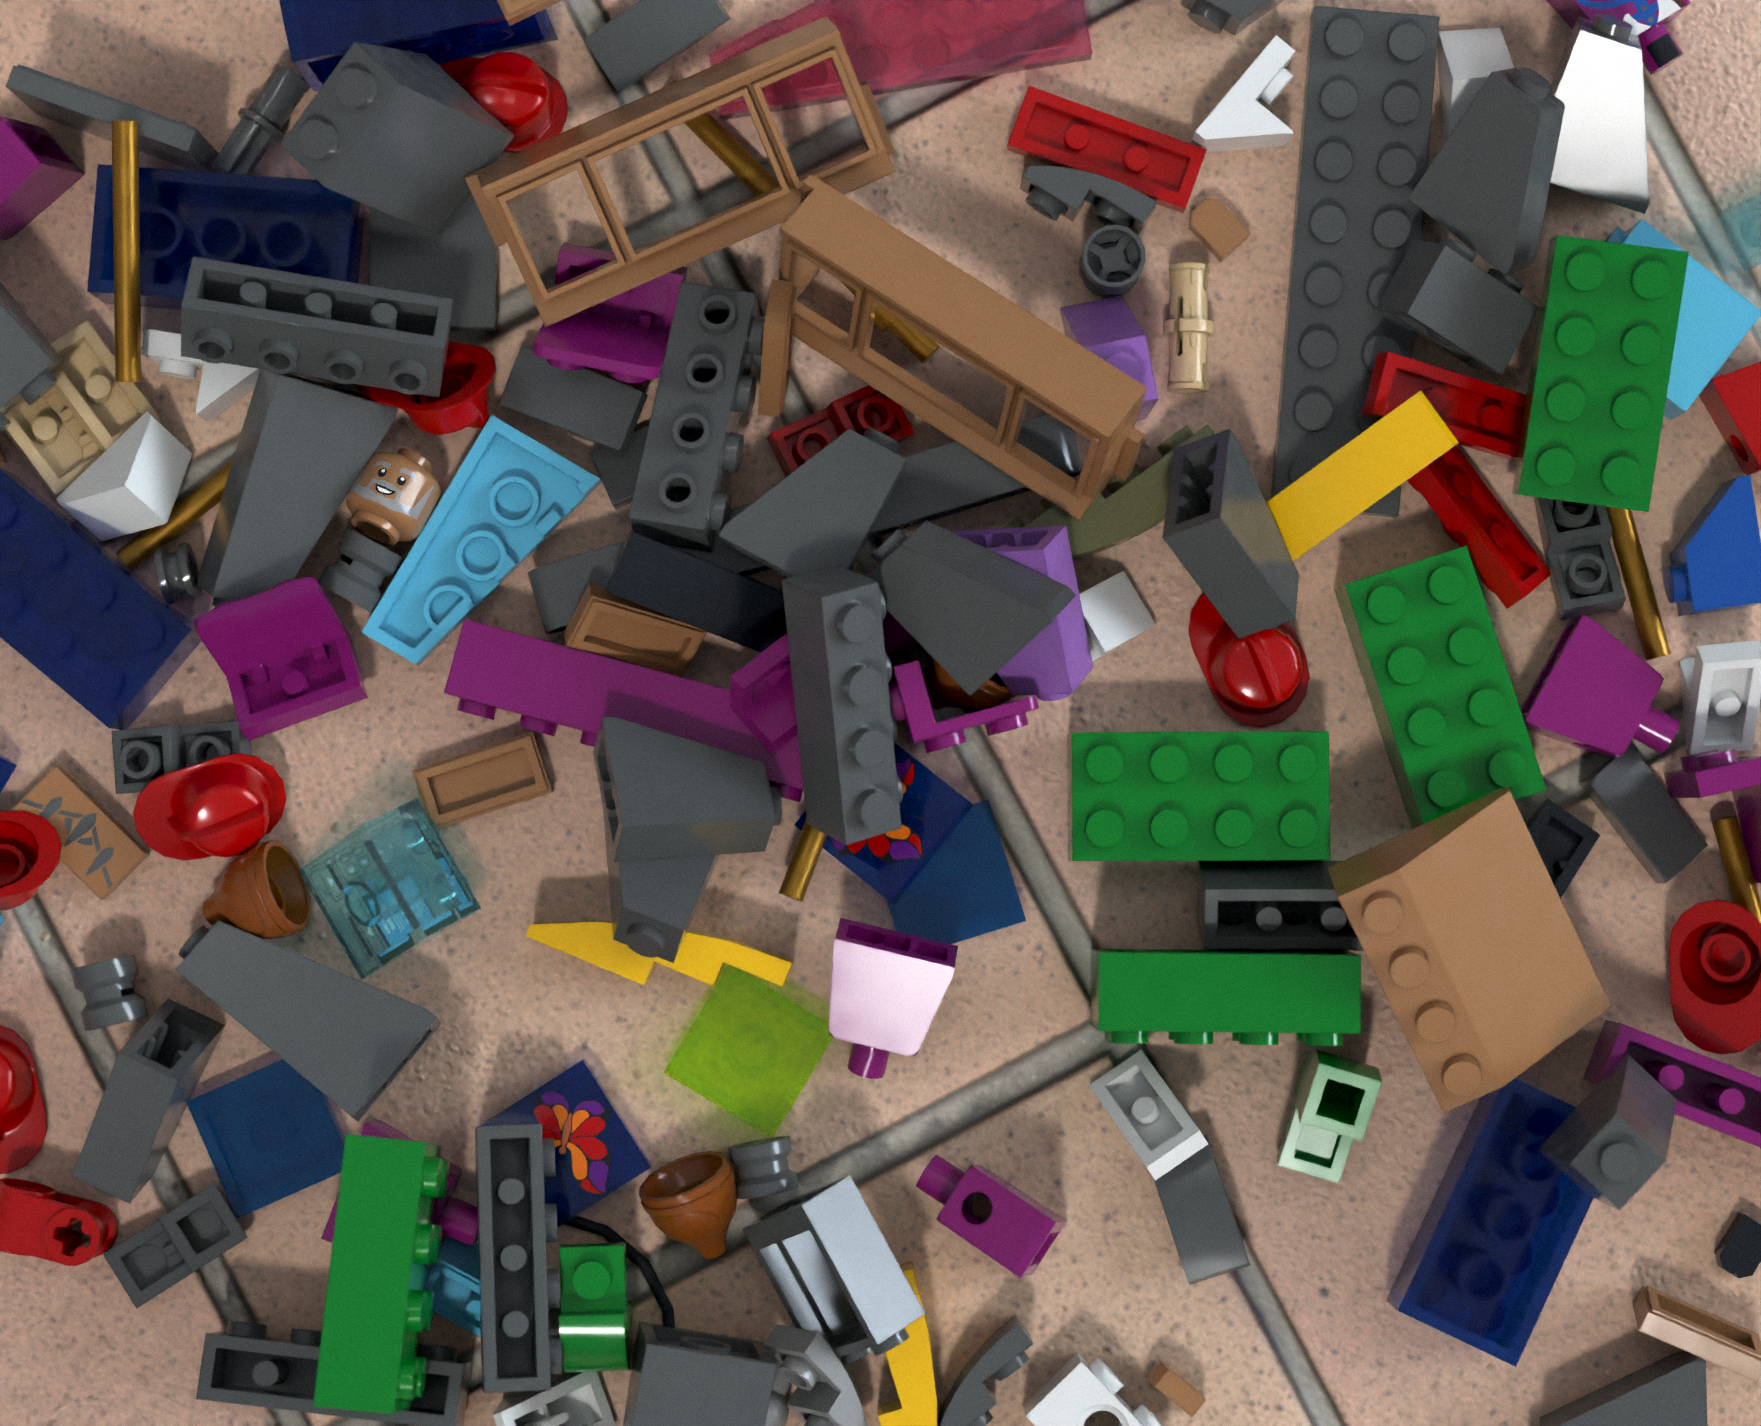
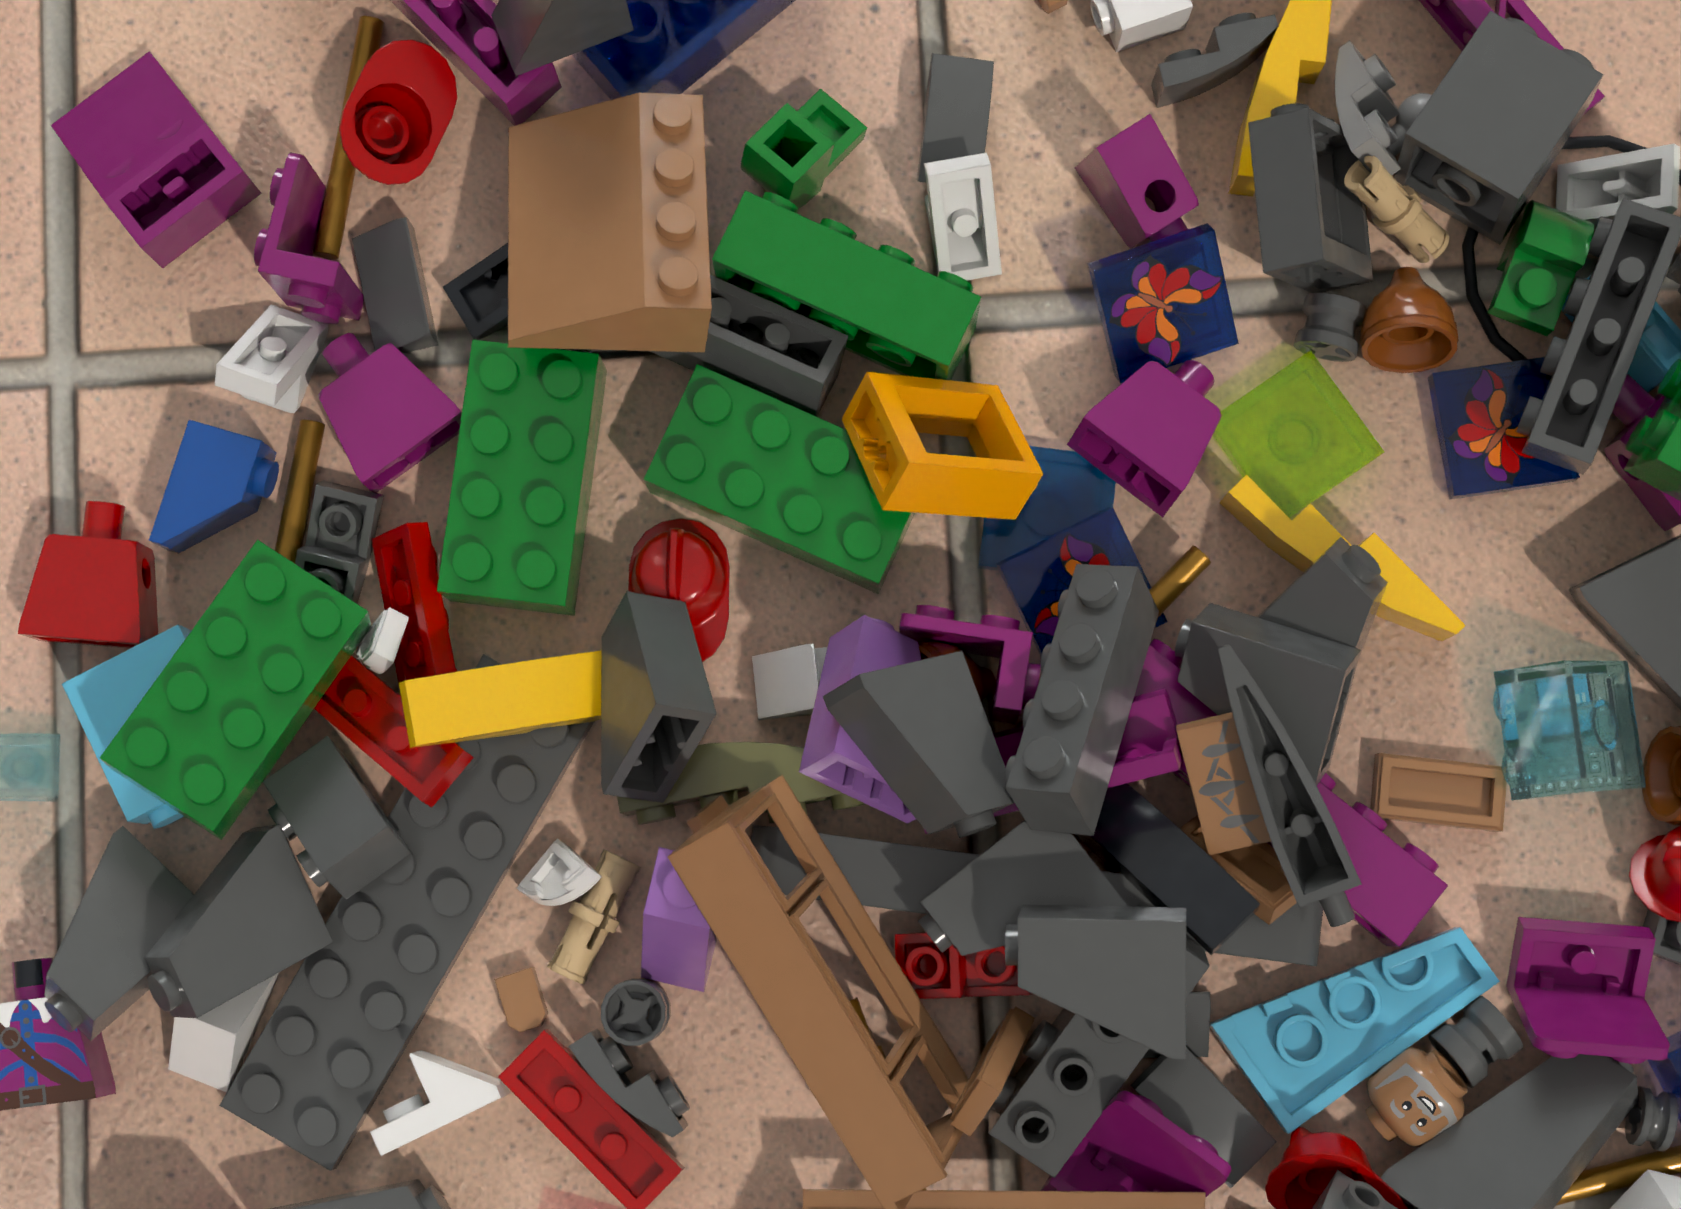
camera: 150 degrees left, 5 degrees down
(620, 692) = (1289, 800): none -> dark grey piece
(683, 689) = (1221, 784): none -> medium nougat tile
(717, 470) = (1108, 966): none -> dark grey slope
(750, 1303) = (1396, 209): none -> tan pin
(927, 1118) = (1164, 301): none -> clear blue tile
(1109, 843) = (905, 478): none -> light orange window
(1236, 349) = (558, 876): none -> white tile
(1494, 482) = (382, 641): none -> white tile

